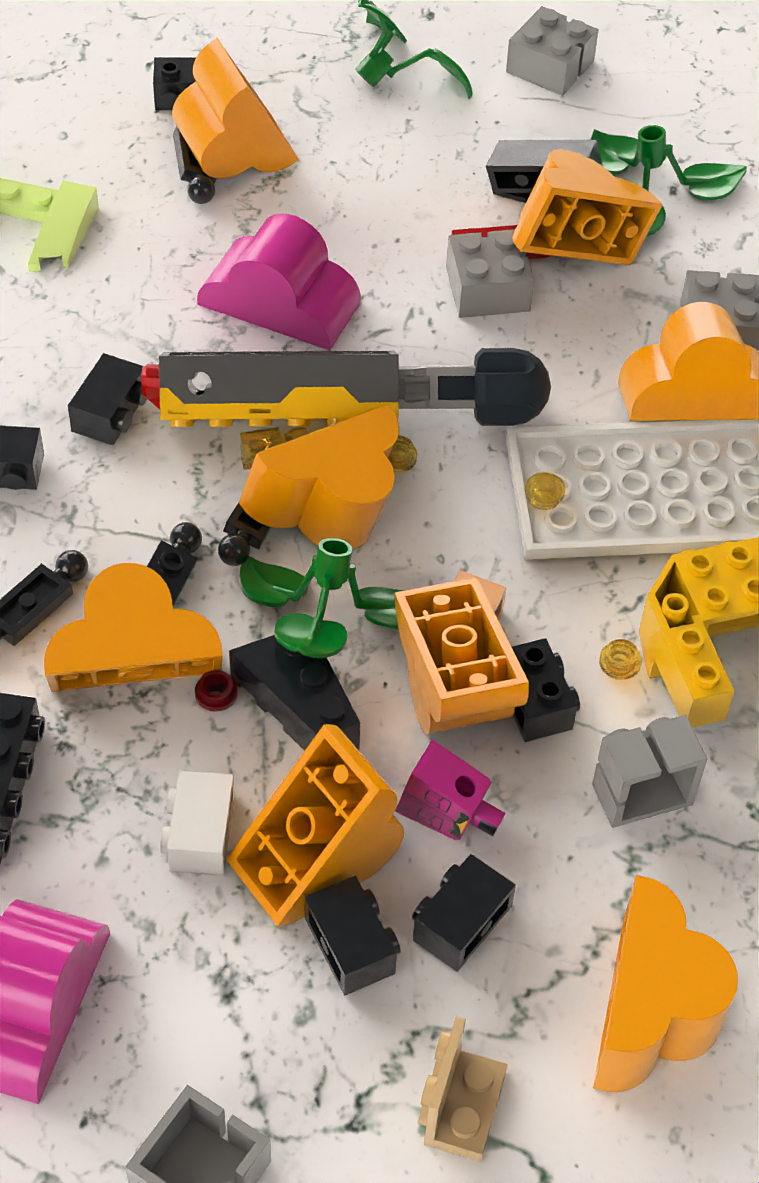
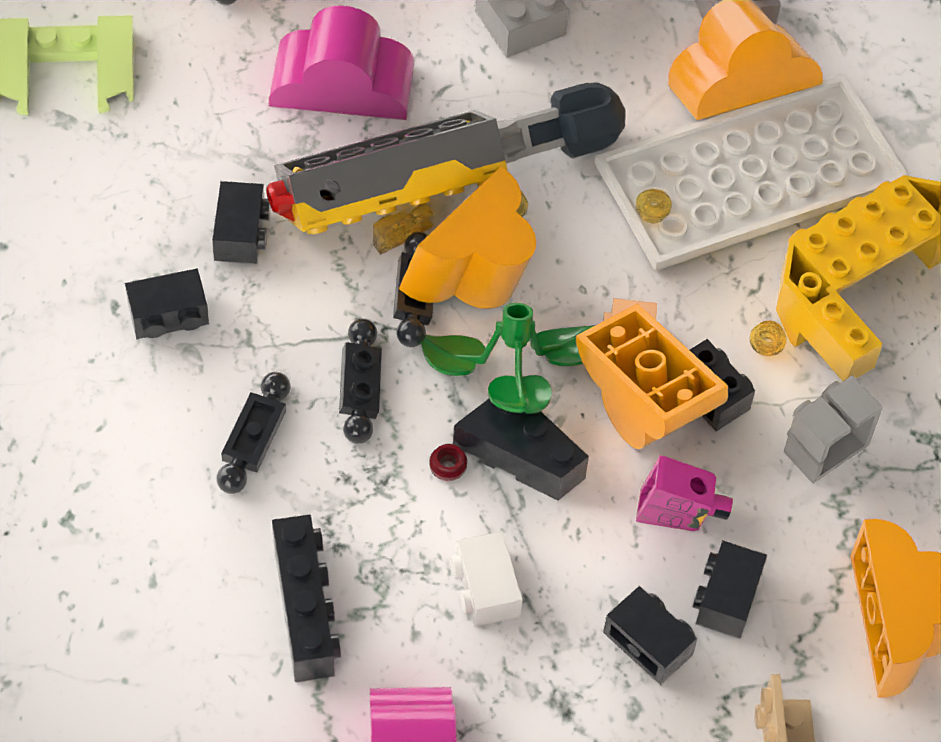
camera: 20 degrees left, 5 degrees up
(130, 635) = (366, 431): light orange brick -> none
(318, 828) = (594, 557): light orange brick -> none

